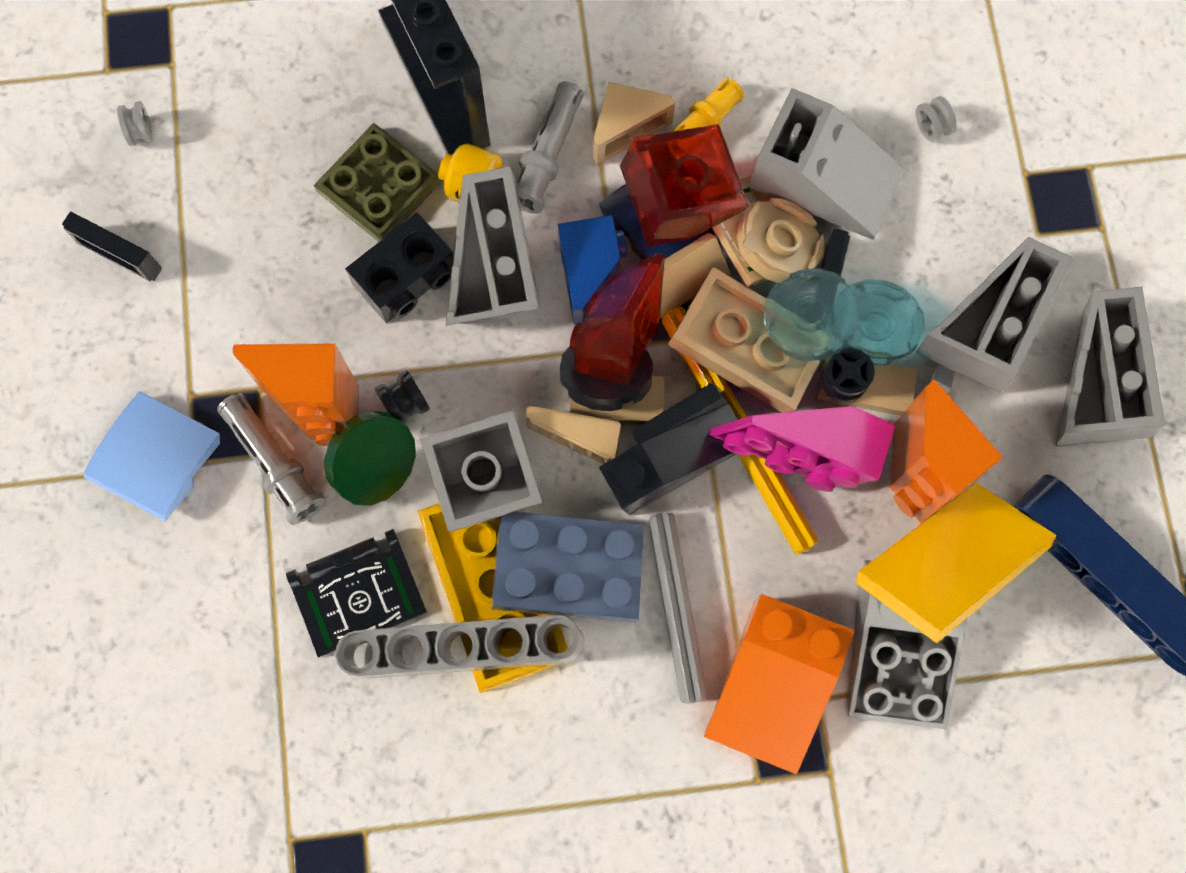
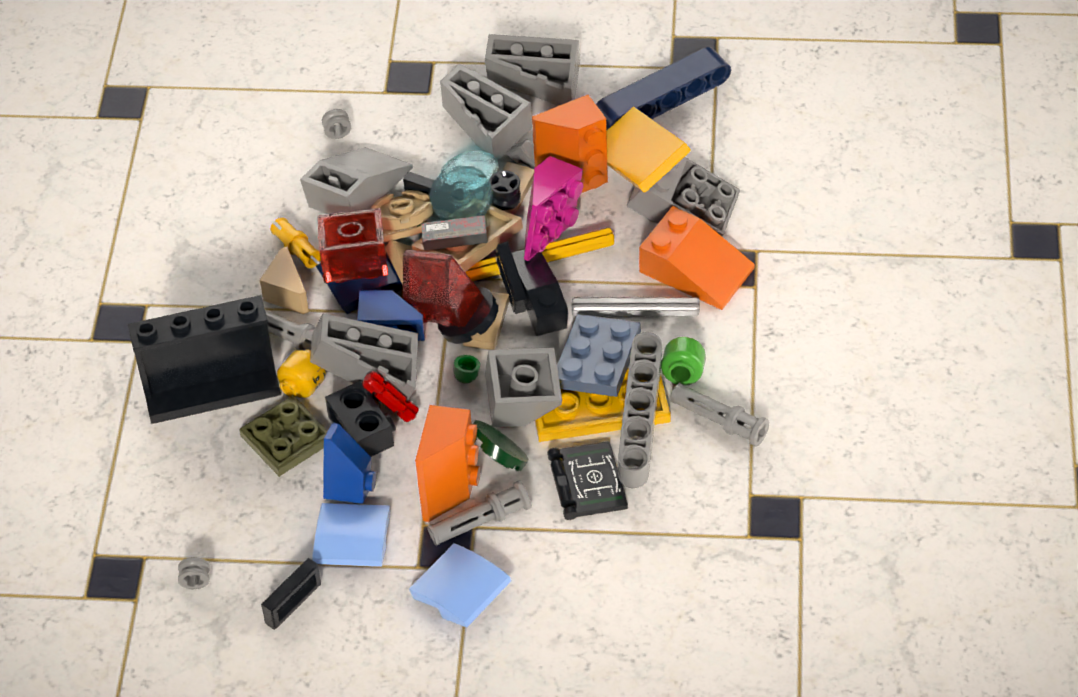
camera: 75 degrees left, 25 degrees down
(219, 300) = (351, 534): none -> light blue slope
(302, 265) = (346, 468): none -> blue slope
(436, 296) = (390, 396): none -> red axle
(482, 786) = (734, 419): none -> light grey pin
(524, 396) = (466, 368): none -> green hinge
(575, 696) = (683, 361): none -> bright green head
(584, 434) = (511, 330): tan slope -> none
(737, 319) = (454, 233): none -> dark grey tile

